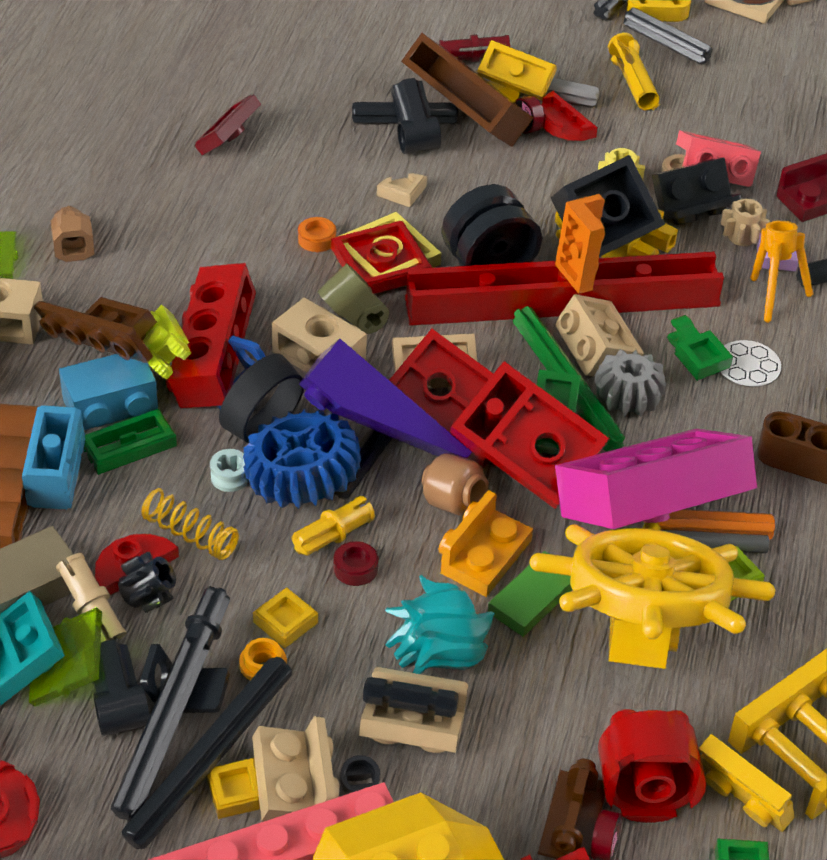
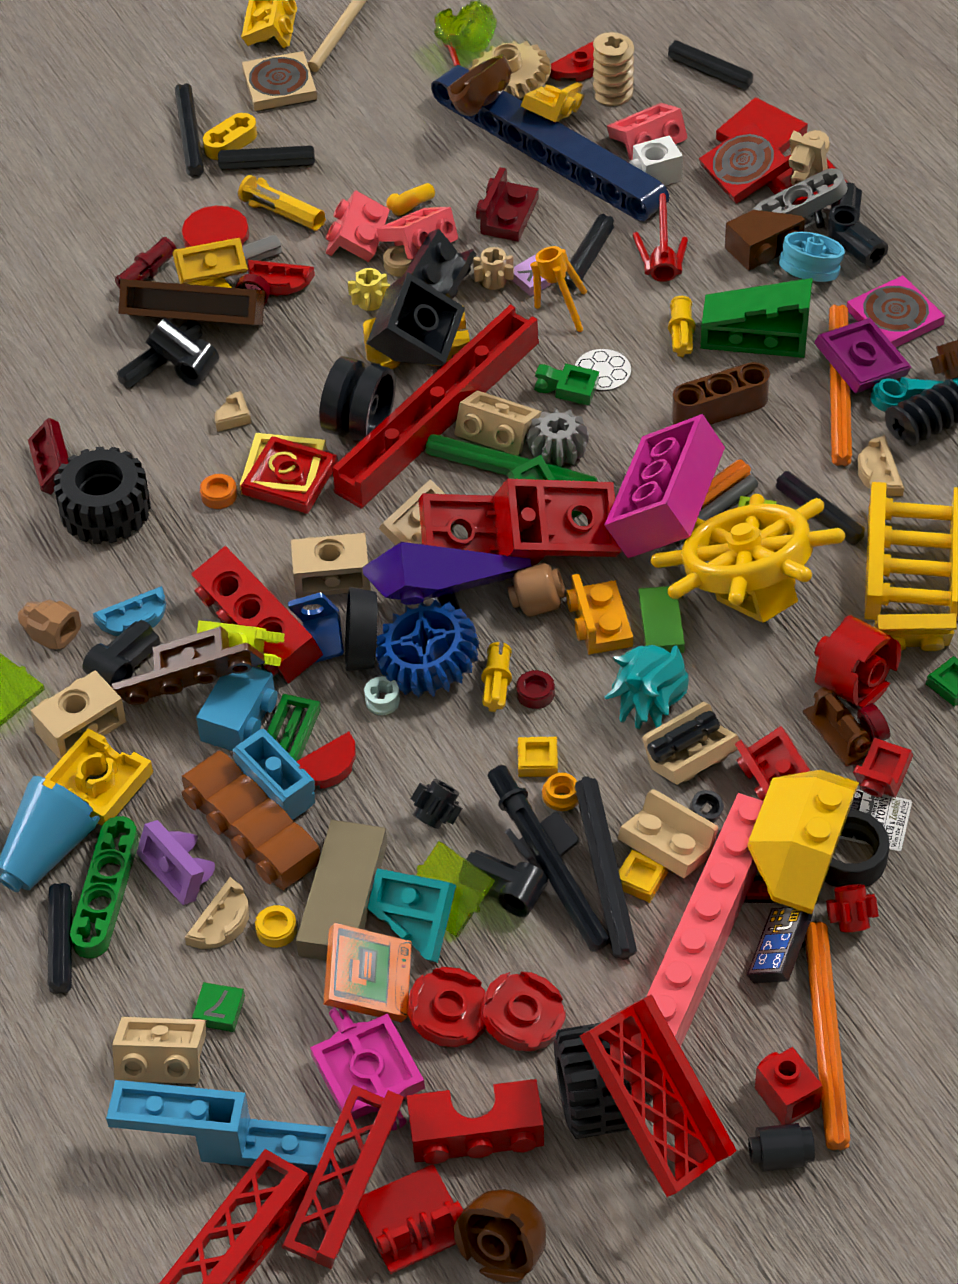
camera: 40 degrees left, 5 degrees up
(79, 292) = (123, 654): none -> black piece
(90, 595) = (416, 841): tan pin -> none
(109, 563) = (395, 804): red plate -> none
(119, 487) = (331, 762): none -> red tile
(140, 274) = (146, 606): none -> dark azure tile
(217, 541) = (444, 748): yellow piece -> none
(221, 172) = (102, 495): none -> black tyre
(354, 300) = (323, 514): olive piece -> none
(469, 785) = (770, 758): none -> red bracket
(570, 56) = (214, 225): none -> red tile
(581, 241) = (443, 361): orange bracket -> none
(662, 124) = (357, 226): none -> coral bracket
(743, 131) = (409, 199): none -> yellow arm
(801, 609) = (830, 516): none -> black axle

